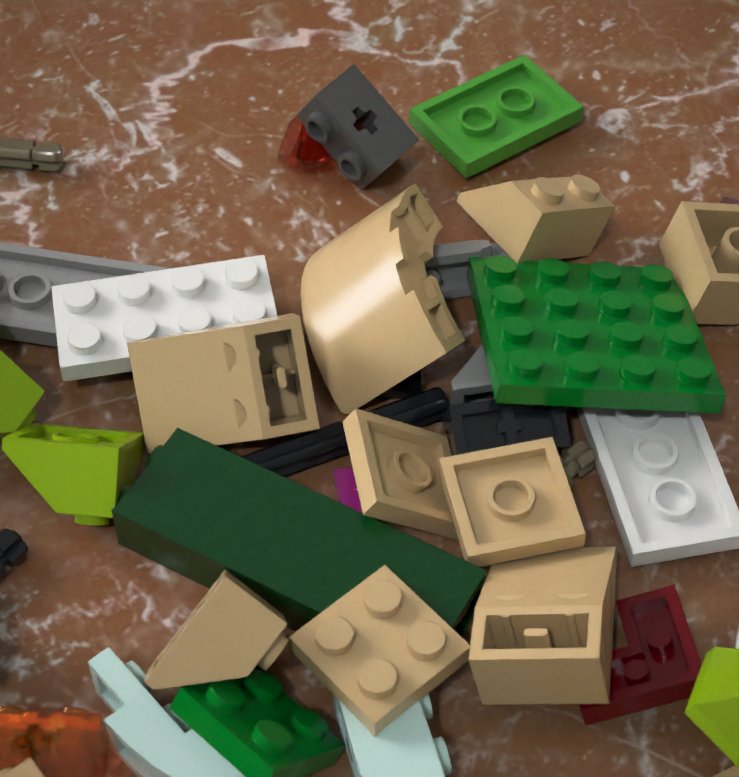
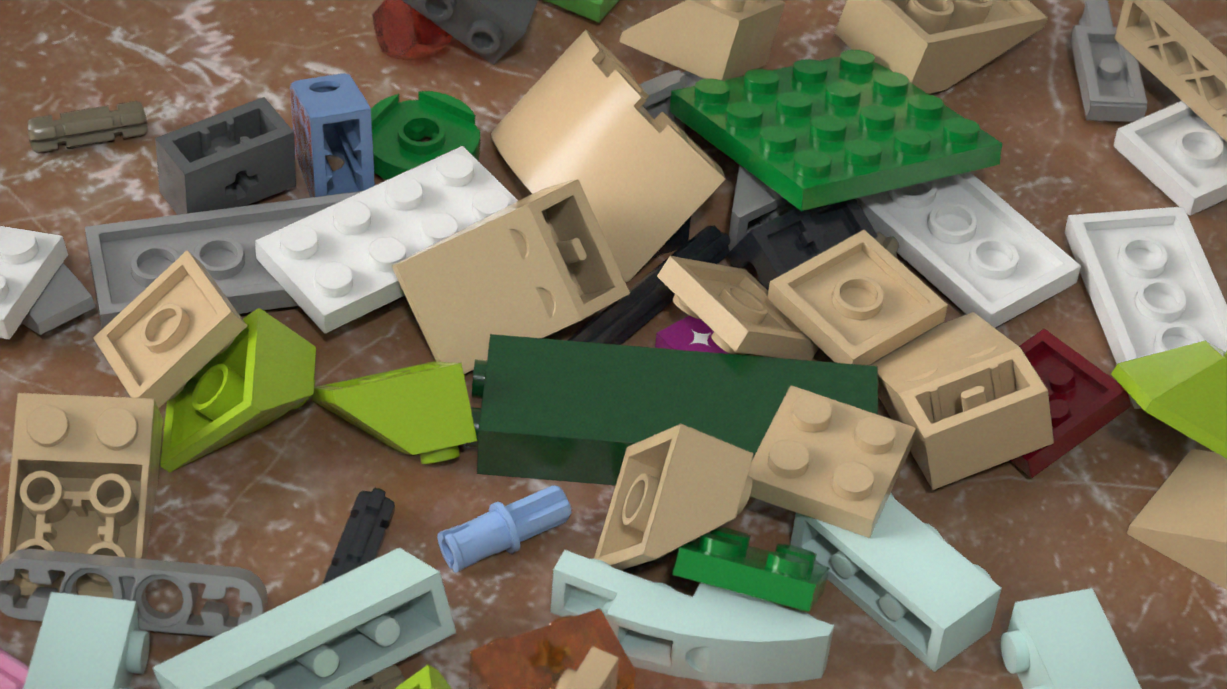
camera: 30 degrees left, 5 degrees down
(80, 211) = (227, 159): none -> dark grey brick
(96, 603) = (503, 527): none -> light blue axle
(175, 201) = (336, 121): none -> medium blue torso
(242, 216) = (432, 115): none -> green plate

